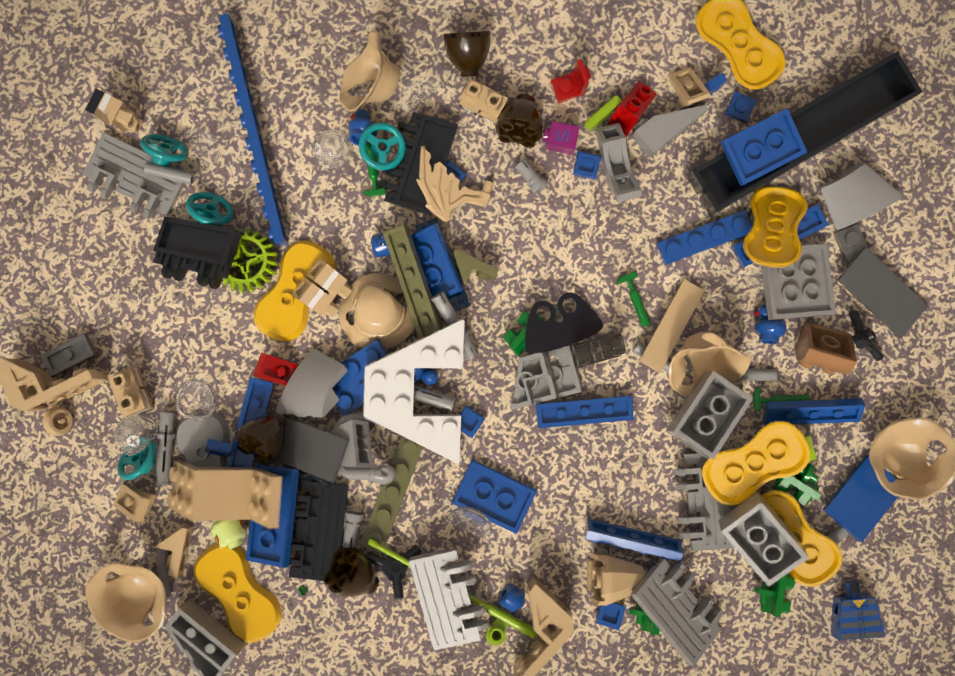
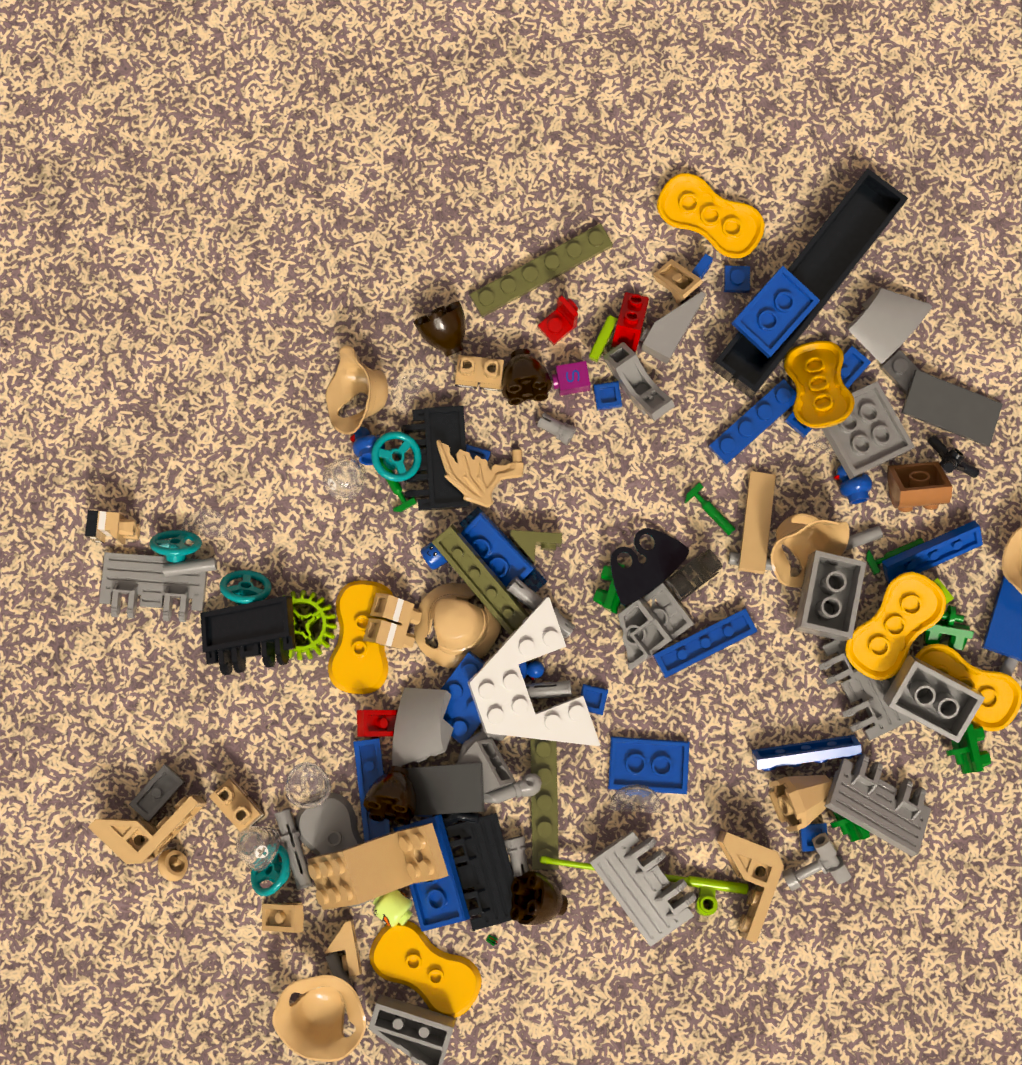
camera: 20 degrees left, 5 degrees down
(218, 448) = (350, 825): blue tile -> none
(254, 140) = (262, 500): blue plate -> none
(394, 569) = (578, 878): black piece -> none
(511, 597) = (708, 860): blue piece -> none
(573, 33) = (541, 270): none -> olive plate
(612, 639) = (825, 860): none -> light grey bar

